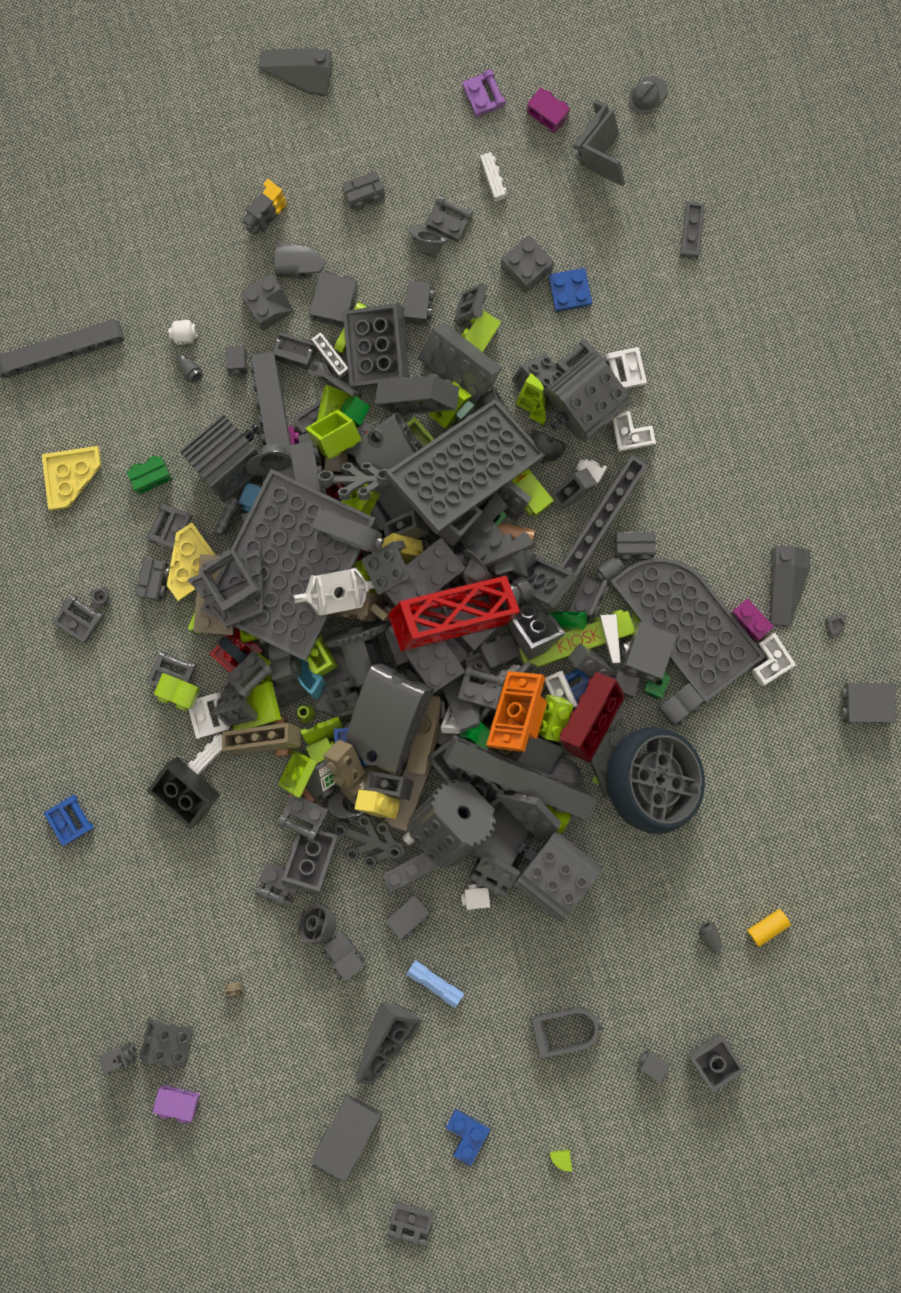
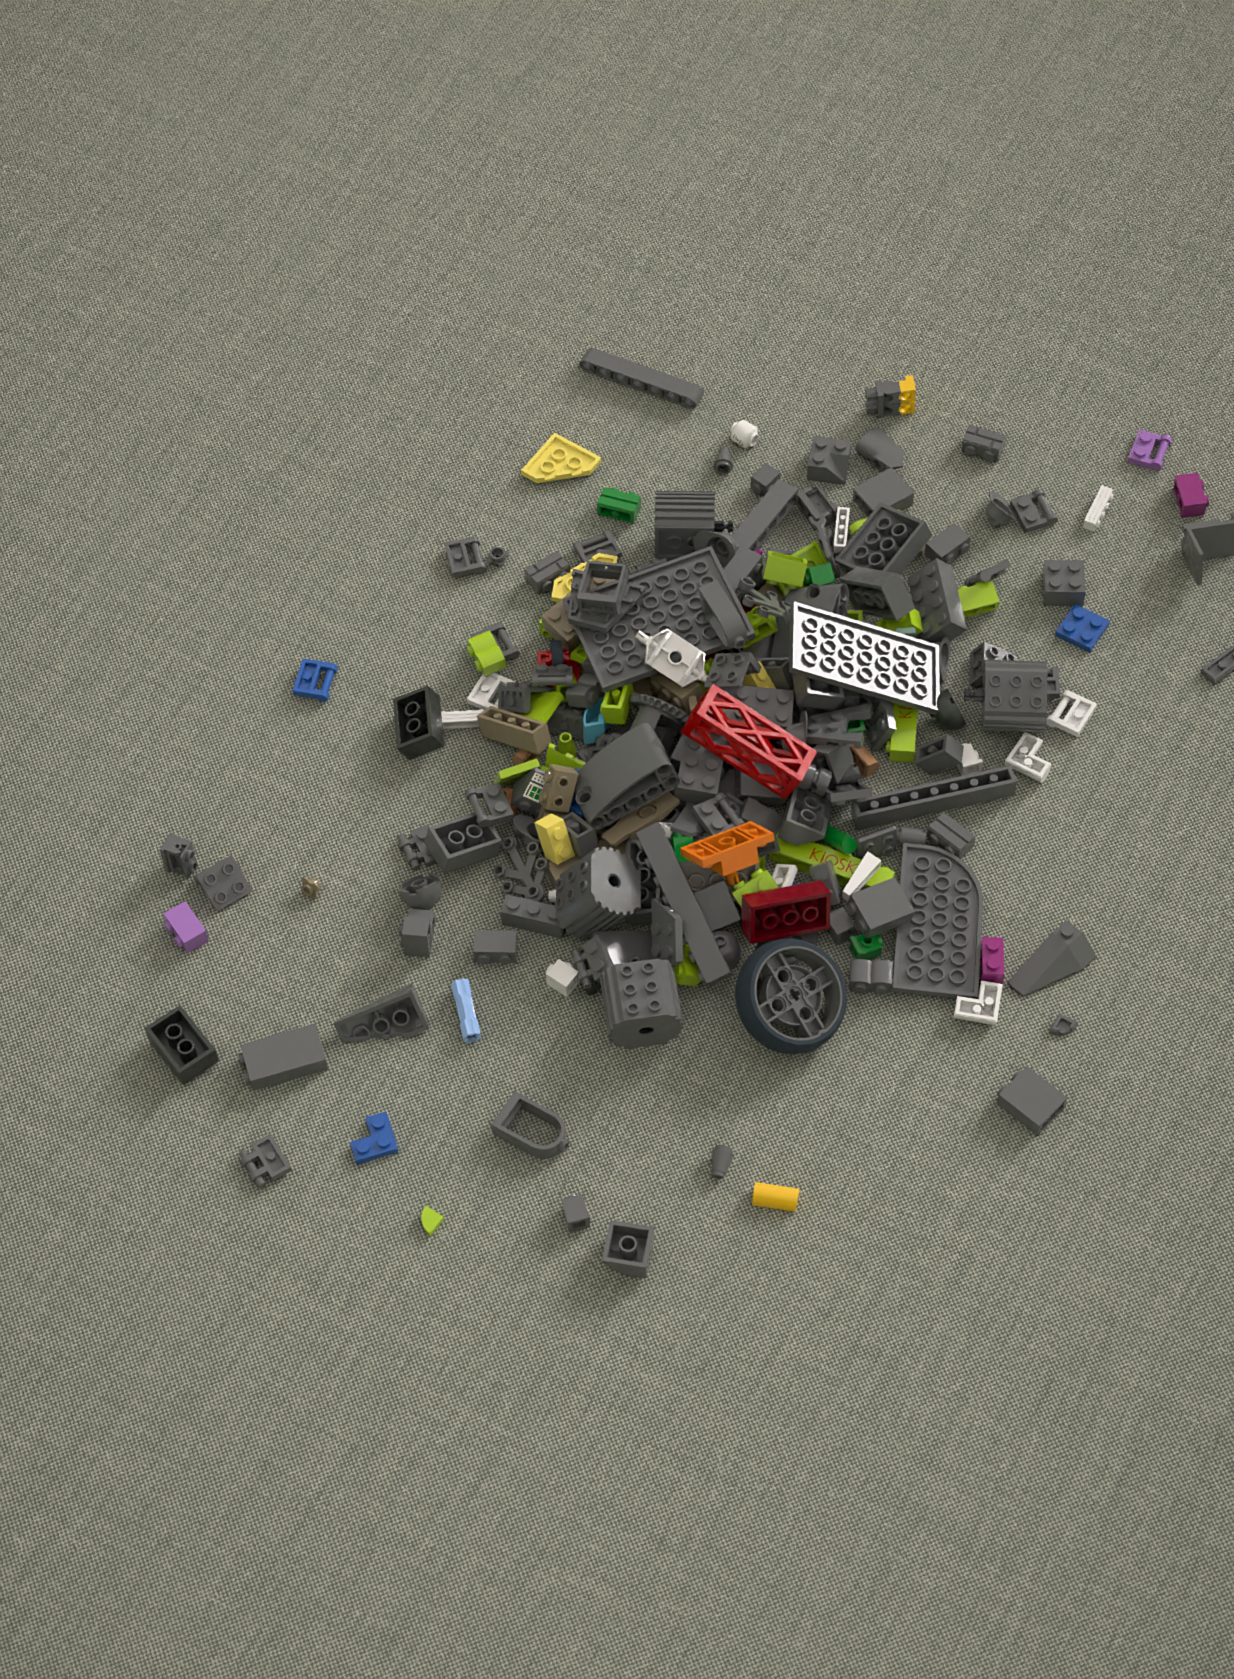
camera: 40 degrees right, 25 degrees down
(267, 1198) = (181, 1044): none -> pearl dark grey brick
(300, 67) = (1020, 333): dark grey wedge -> none
(532, 399) = (970, 669): lime slope -> none

